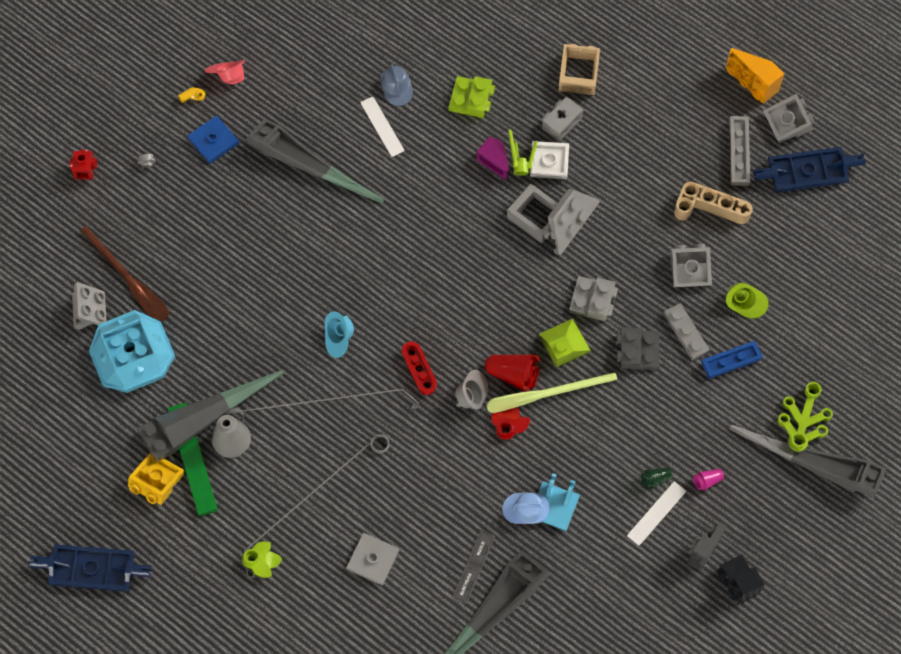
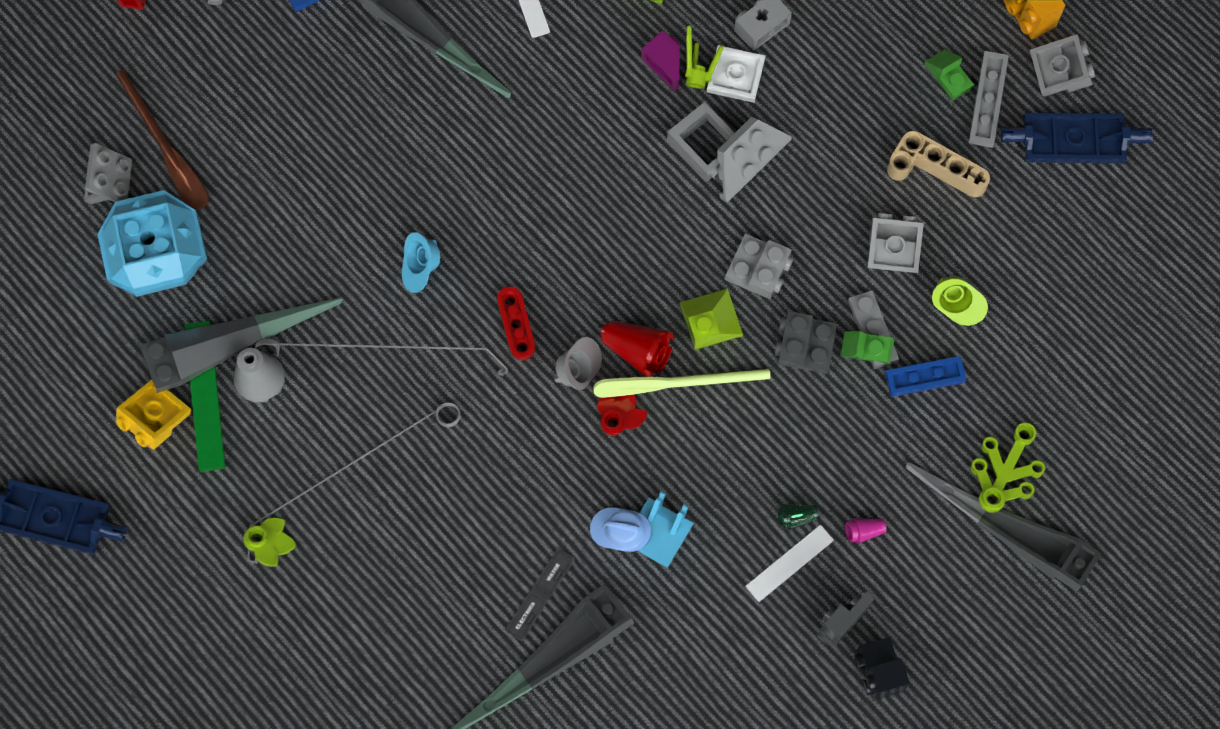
camera: 10 degrees right, 5 degrees up
(373, 559) = (411, 563): light grey plate -> none
(684, 344) = (867, 347): none -> bright green slope
(705, 135) = (949, 74): none -> bright green slope

